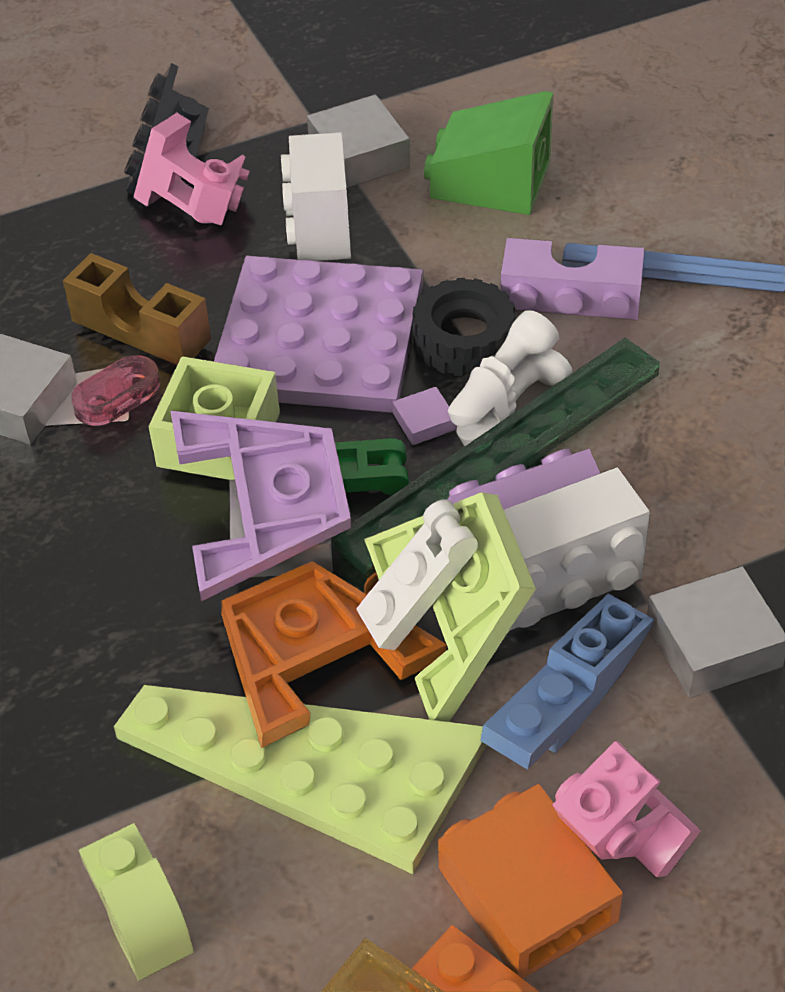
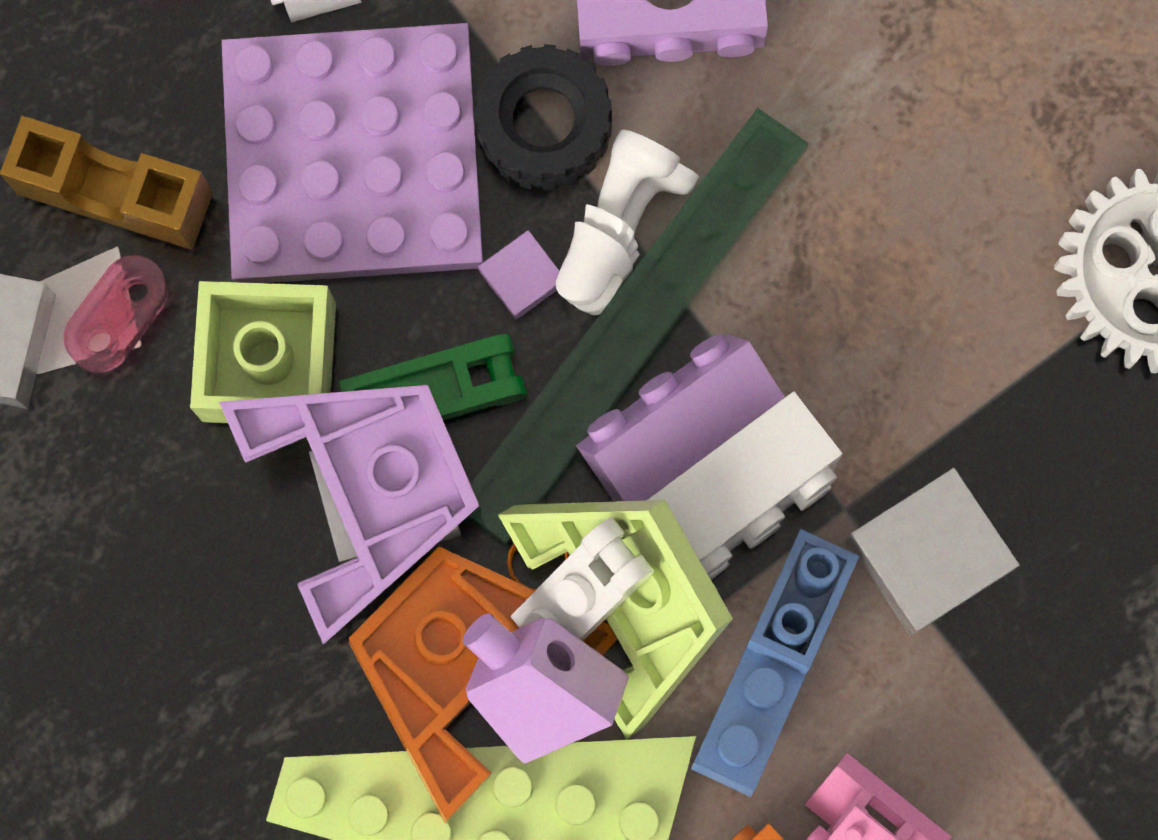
camera: 10 degrees left, 30 degrees up
(364, 640) = (540, 685): none -> lavender torso

